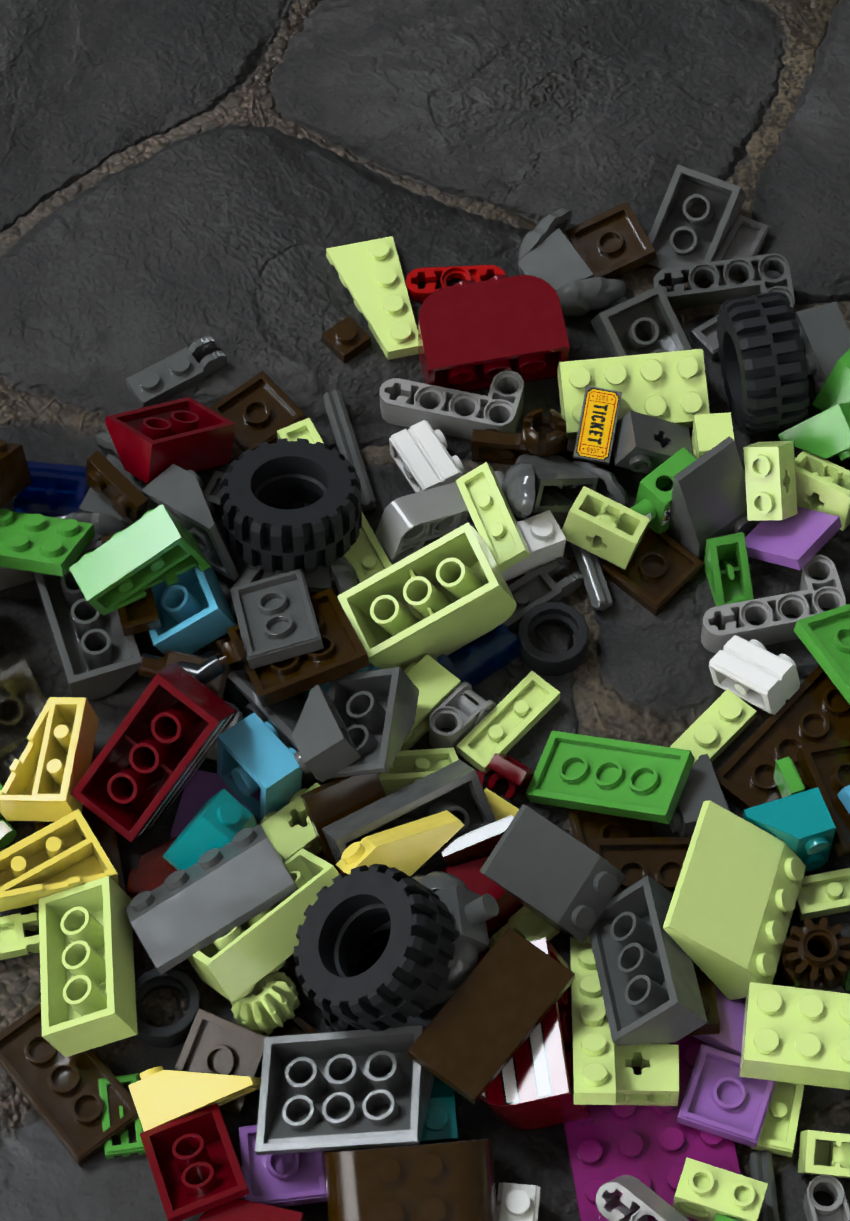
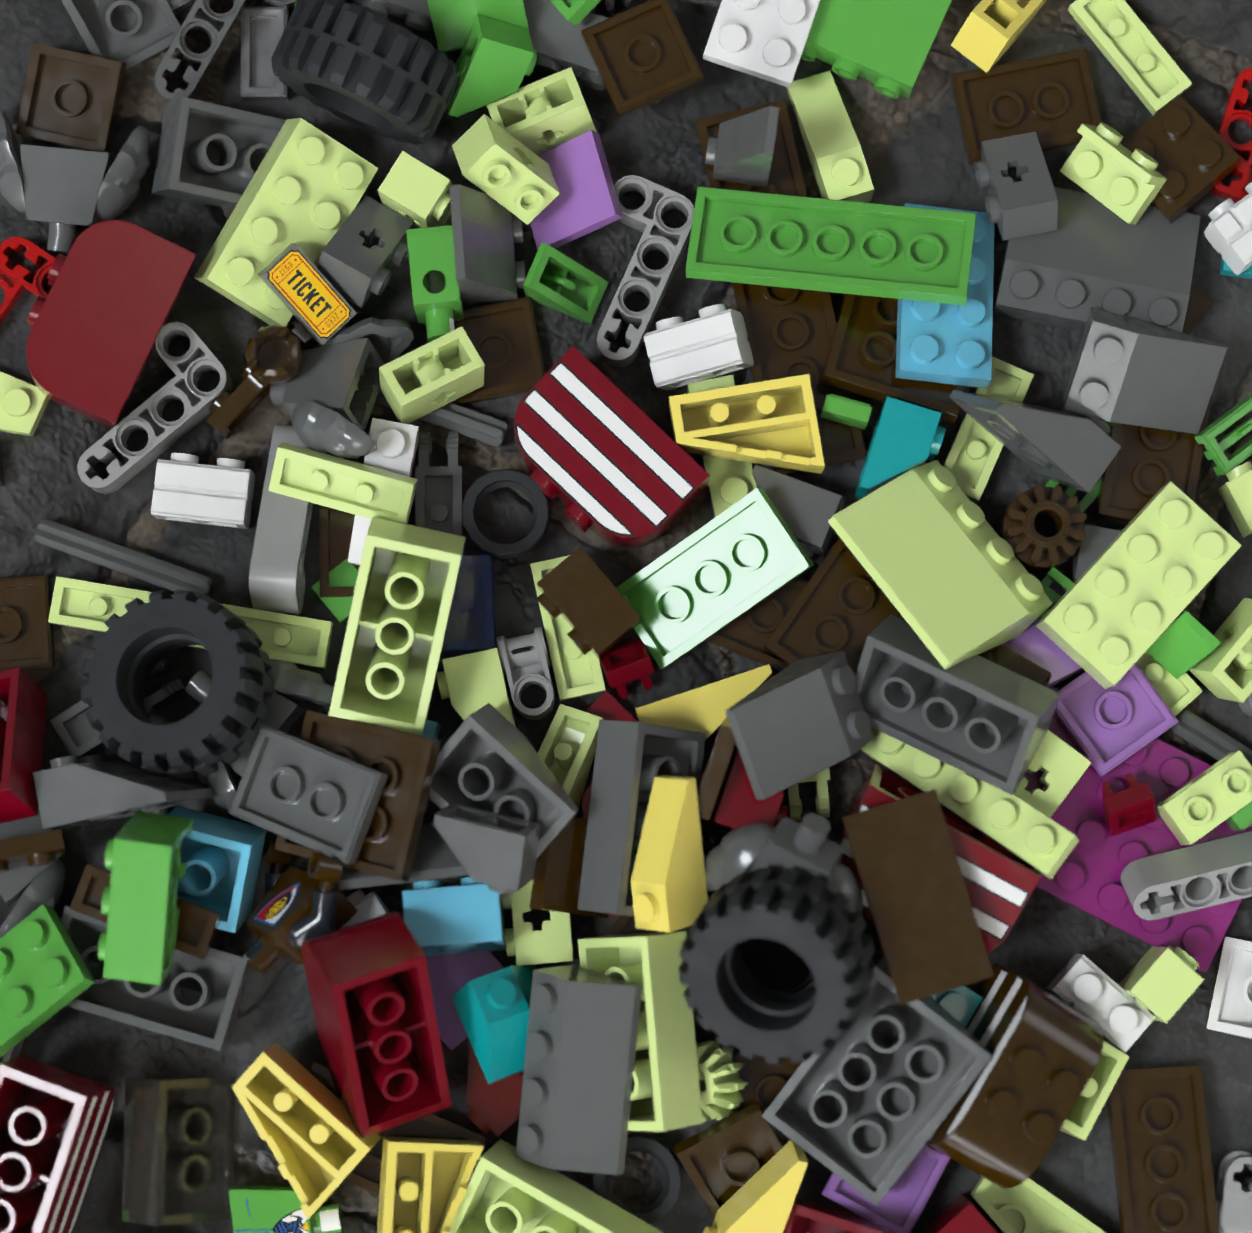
camera: 55 degrees left, 25 degrees up
(532, 713) = (587, 603): none -> dark brown brick
(635, 659) = (603, 455): none -> brick
(668, 1147) = (1128, 807): none -> dark red tile
(731, 727) = (752, 423): none -> light yellow wedge
(815, 1104) = (1182, 644): none -> bright green slope

